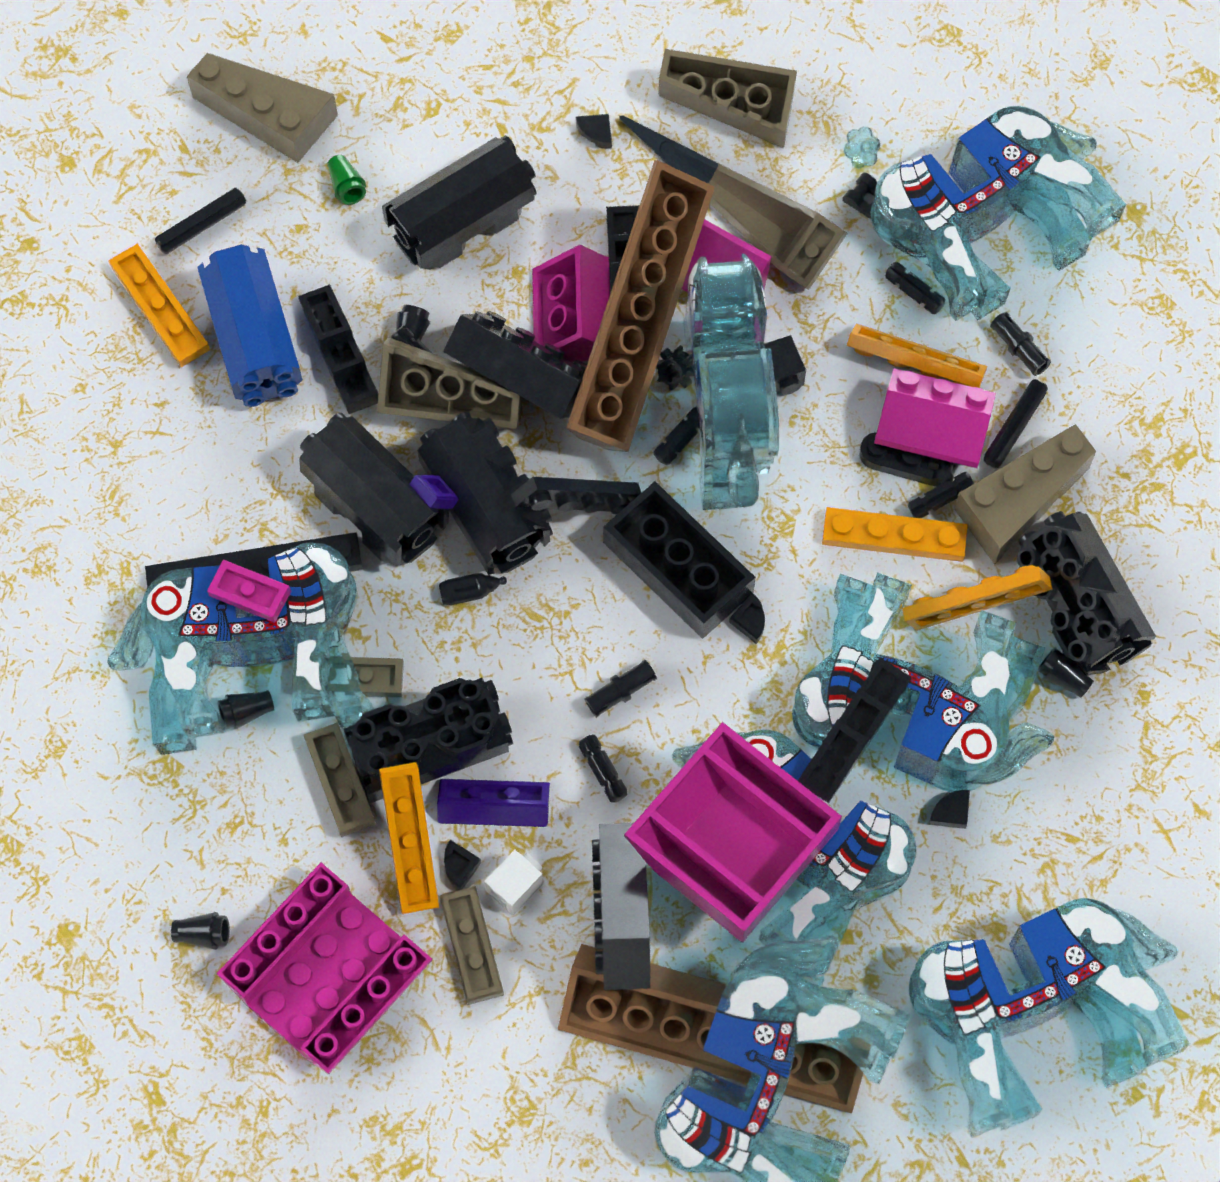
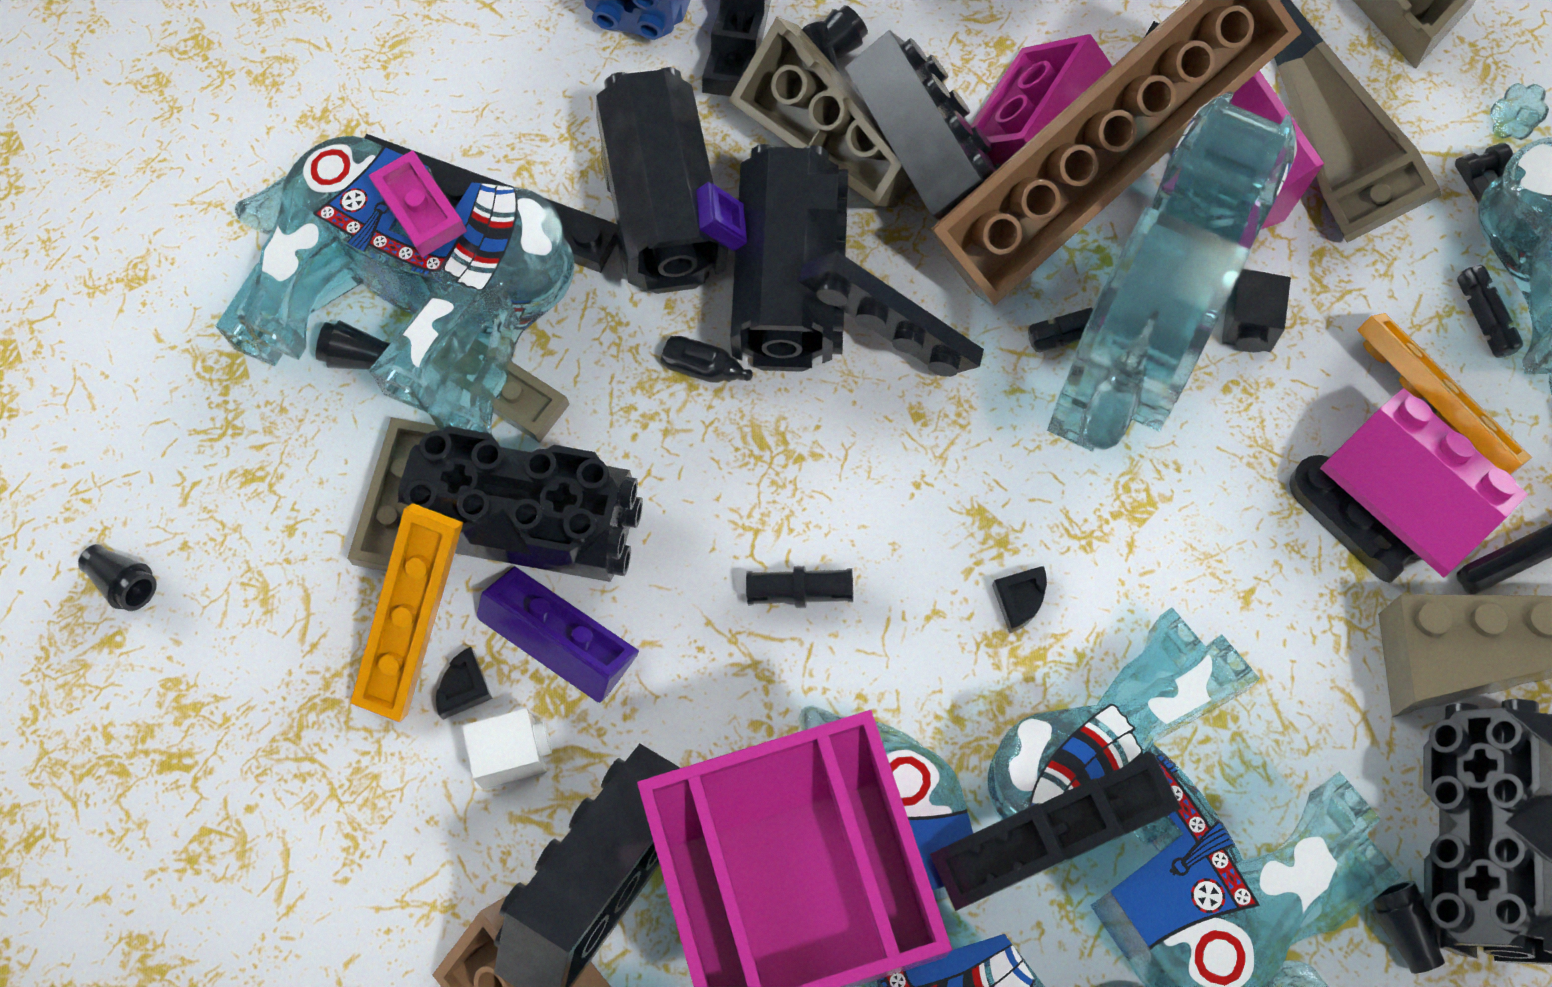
camera: 35 degrees right, 0 degrees up
(323, 969) = (208, 712): dark pink slope -> none
(471, 945) = (405, 796): dark tan tile -> none
(603, 768) = (713, 673): black axle -> none
(669, 373) = (1111, 238): black gear -> none
(678, 559) = (974, 471): black brick -> none
(894, 534) = (1280, 601): light orange plate -> none
(940, 495) = (1370, 585): black axle -> none
(988, 594) = (1362, 754): light orange plate -> none

